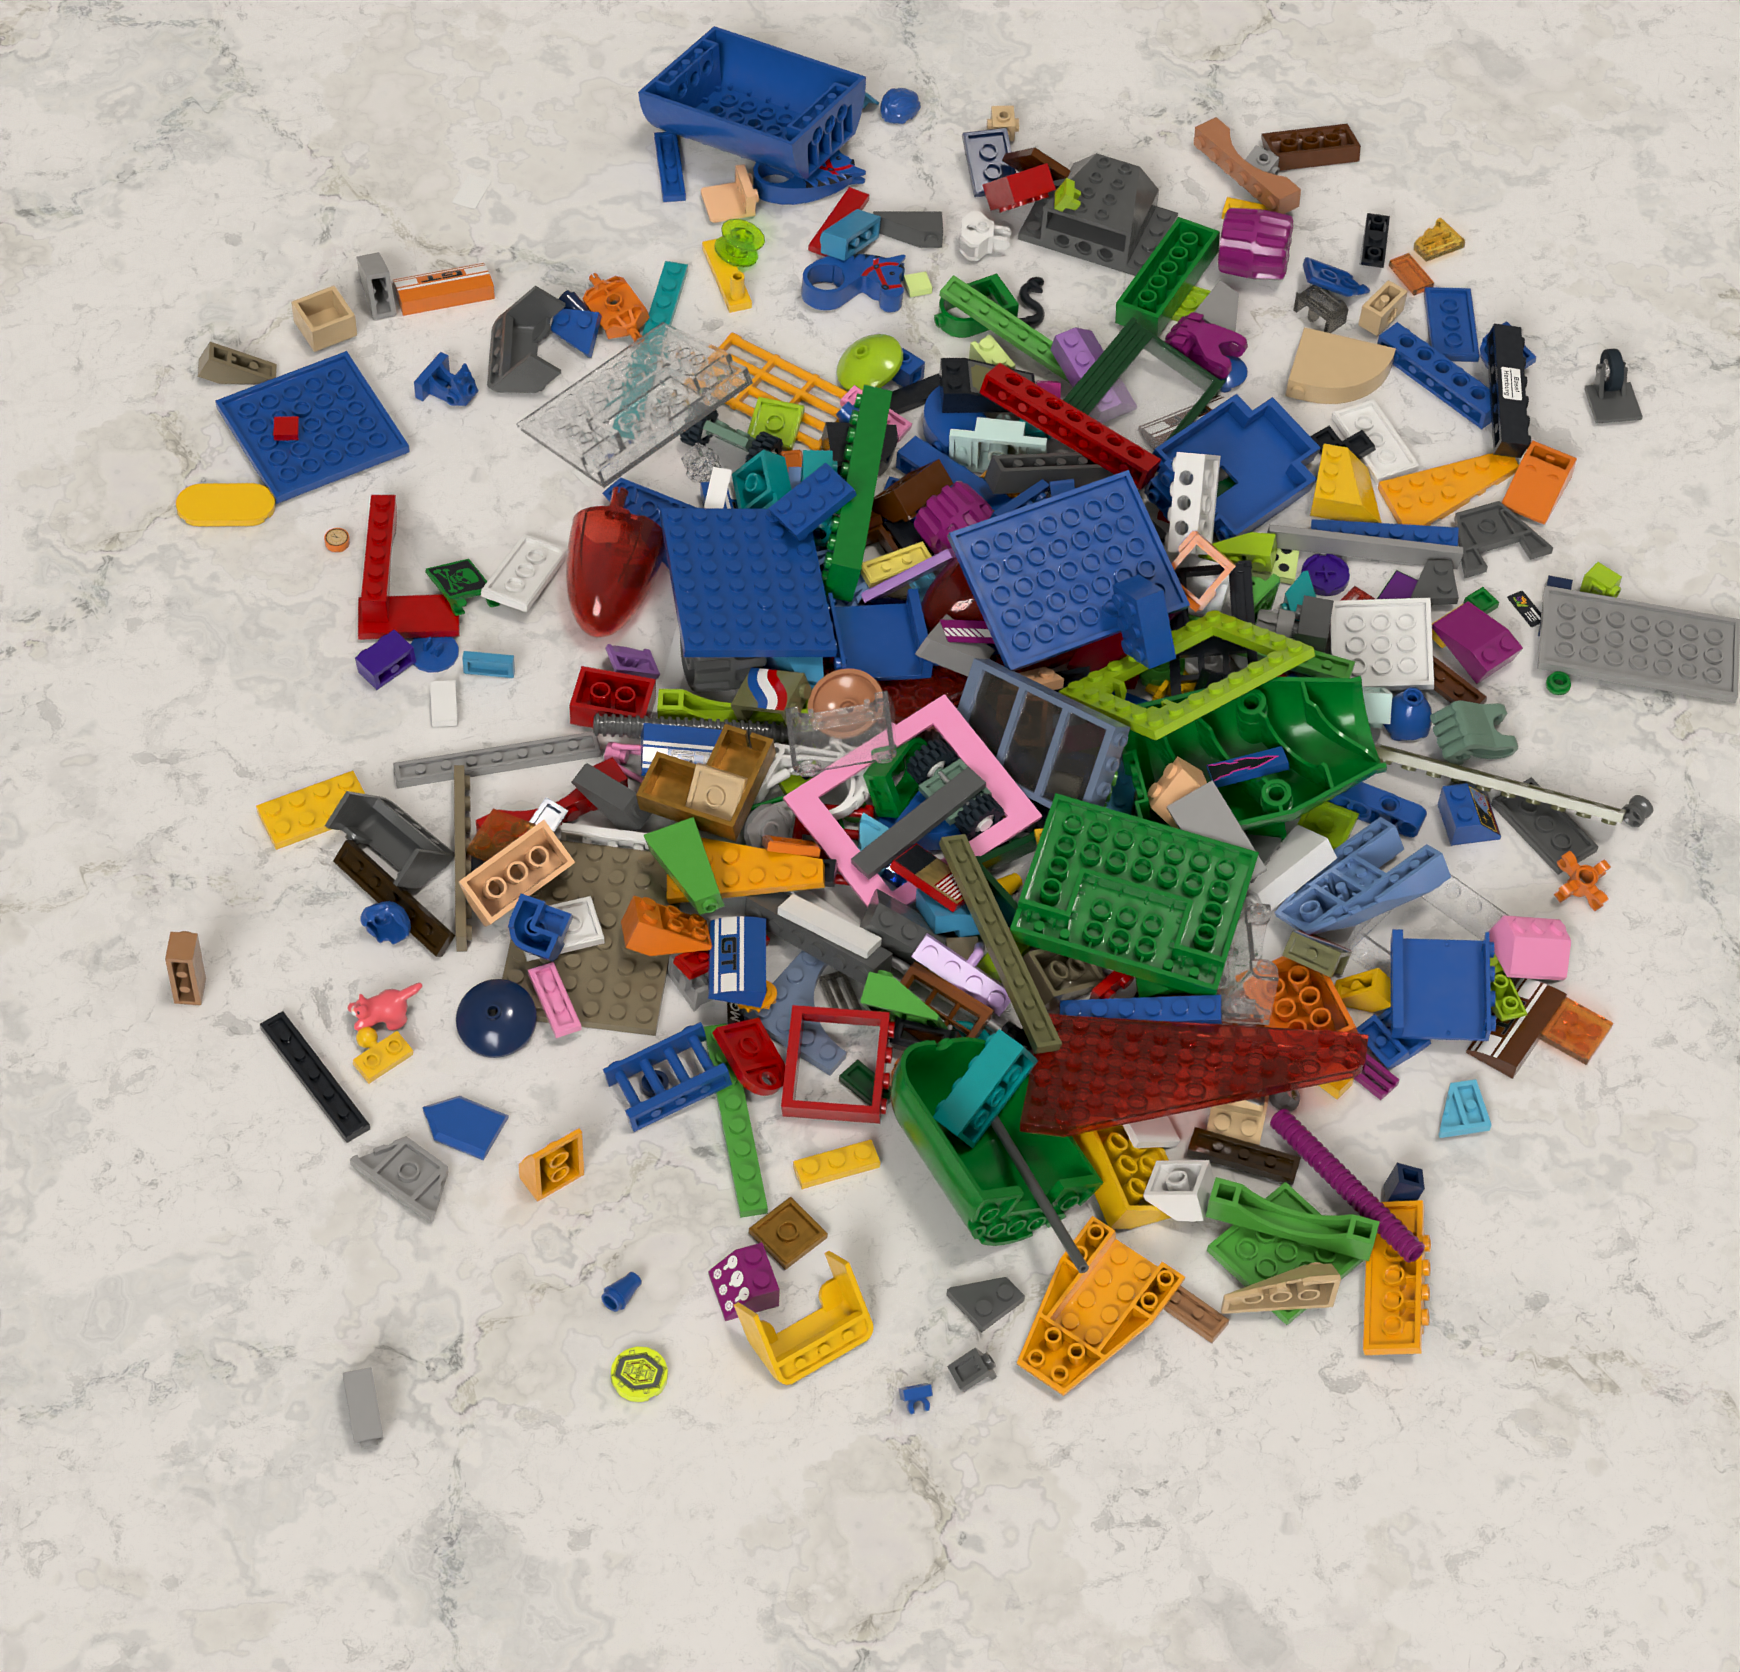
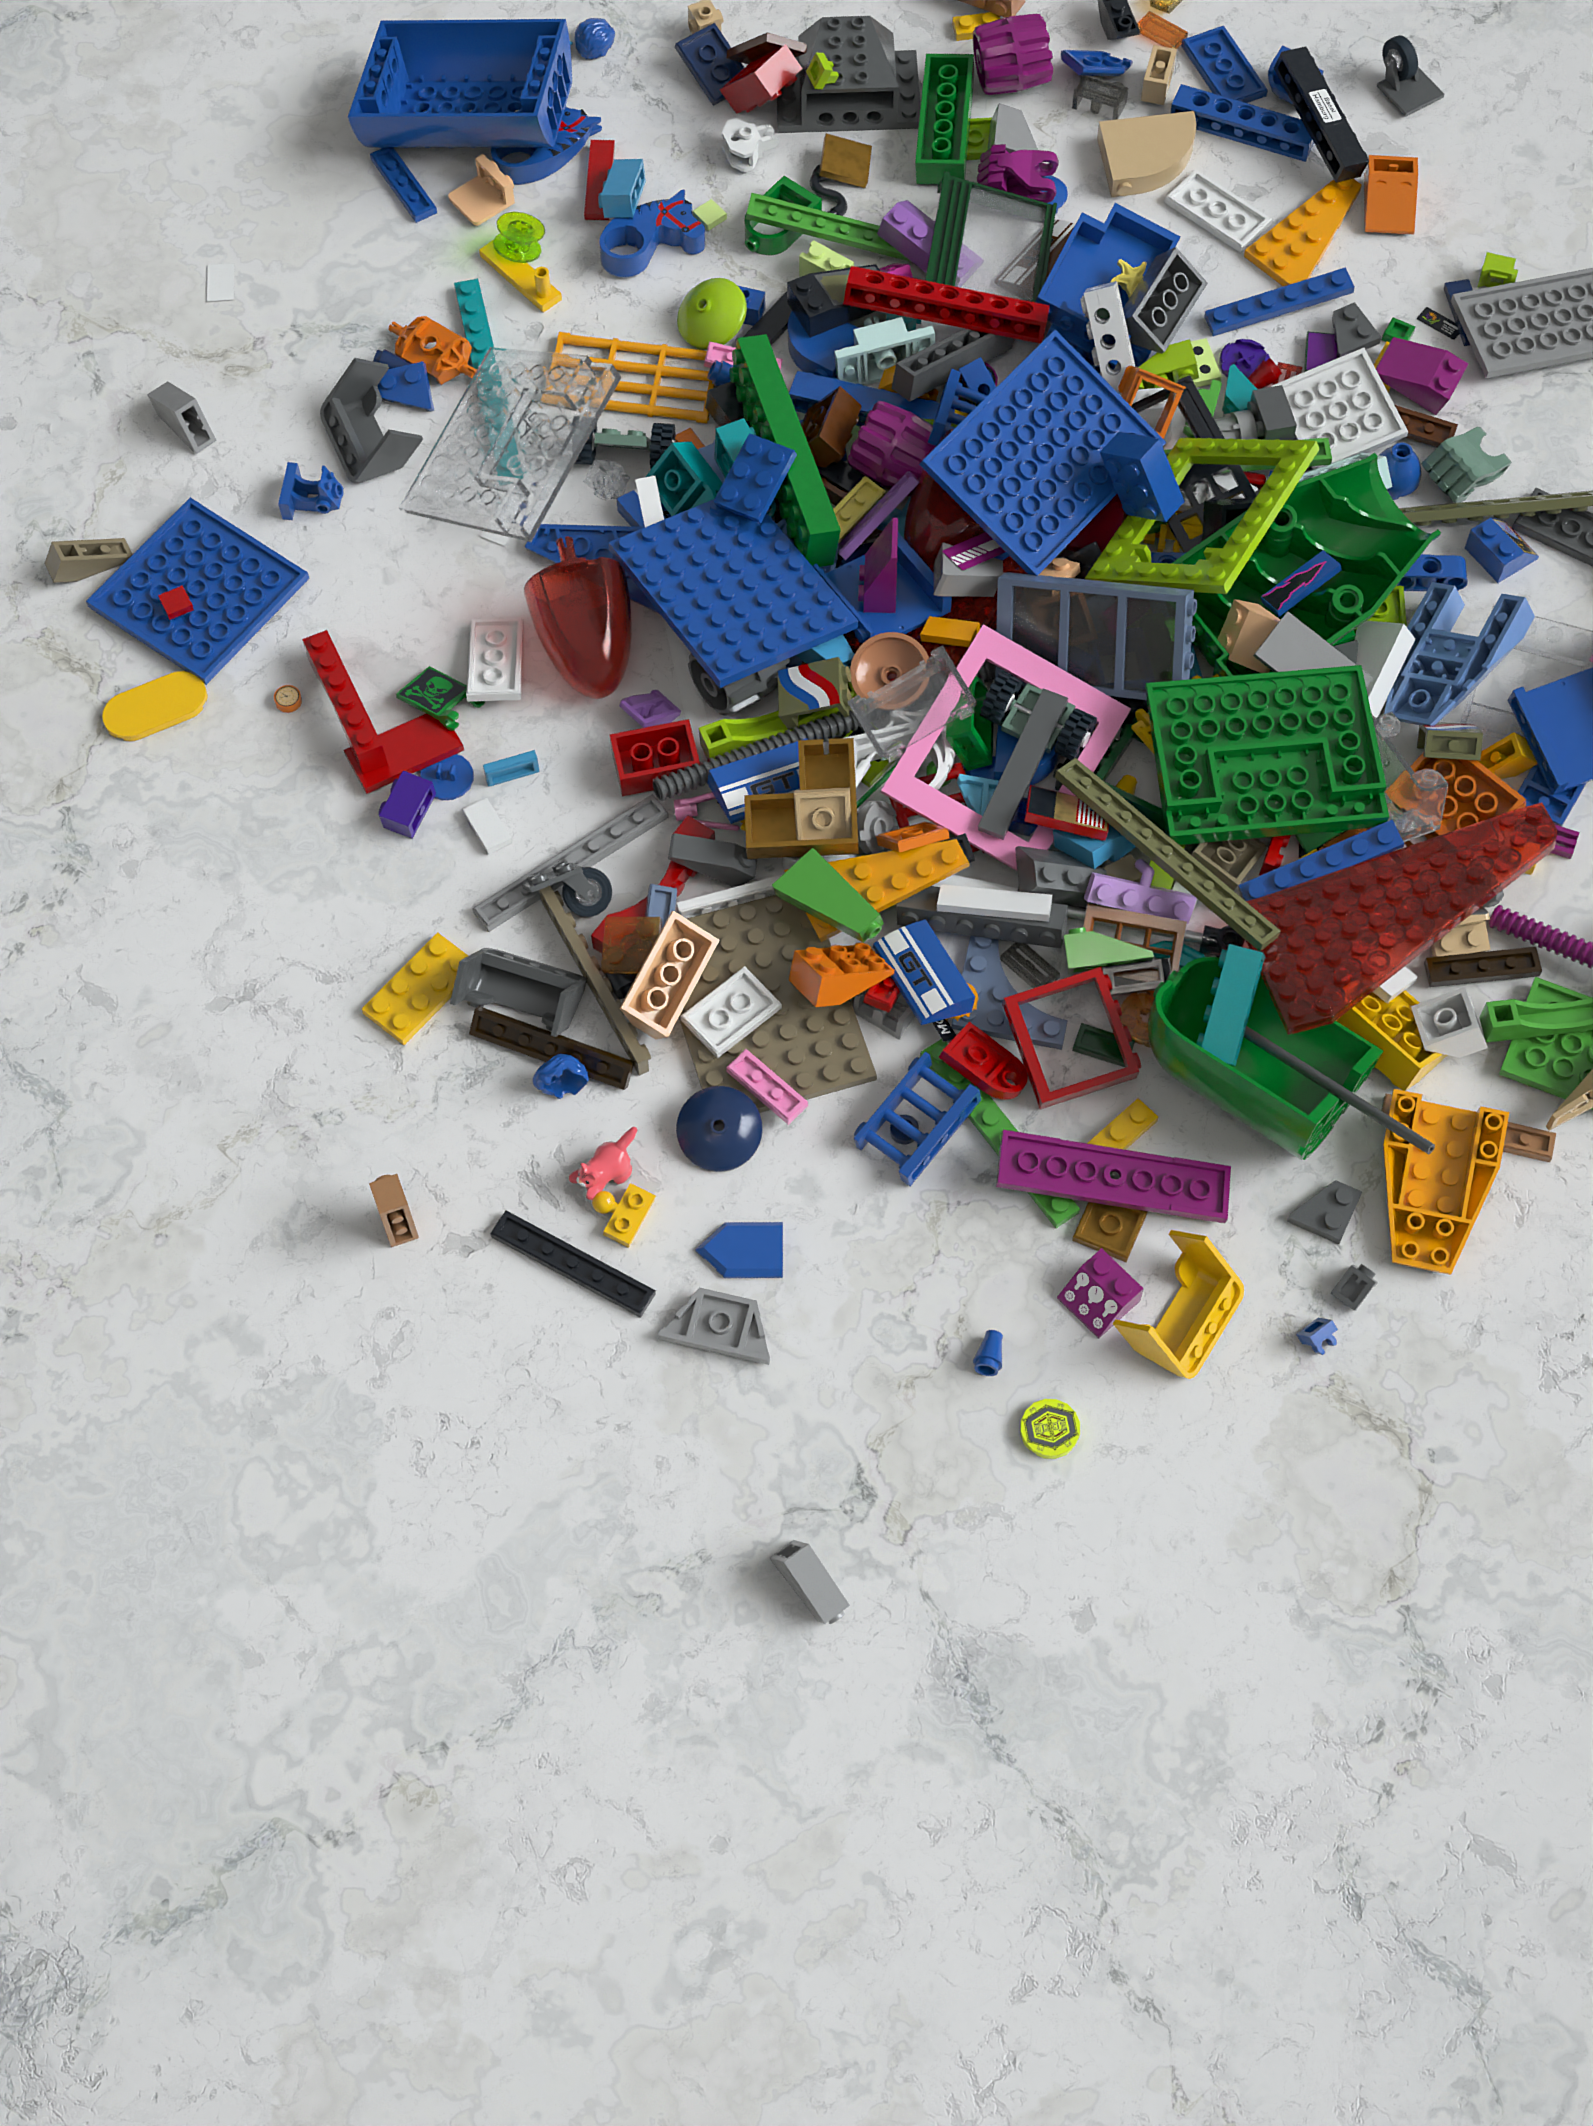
camera: 20 degrees left, 10 degrees up
(324, 318) = (150, 472): tan piece -> none
(444, 289) = (250, 394): orange slope -> none
(492, 783) = (584, 889): none -> plate
(538, 927) = (719, 1022): blue brick -> none
(553, 1165) = (858, 1254): light orange slope -> none
(777, 419) = (653, 405): lime tile -> none
(832, 1208) = (1083, 1174): none -> magenta piece
(883, 621) = (880, 572): none -> magenta slope
(915, 228) = (677, 158): dark grey slope -> none
(915, 690) = (949, 631): none -> light orange tile
(1061, 281) = (845, 160): none -> pearl gold tile
(1254, 466) = (1129, 276): none -> light yellow animal
(1266, 493) = (1162, 301): none -> dark grey slope
(1335, 590) = (1265, 374): none -> red cone
(1343, 488) = (1221, 267): yellow wedge -> none
(1358, 443) = (1201, 228): black tile -> none
(1363, 546) = (1270, 319): light grey tile -> none
(1492, 528) = (1370, 256): dark grey wing -> none
(1558, 683) = (1510, 385): green plate -> none

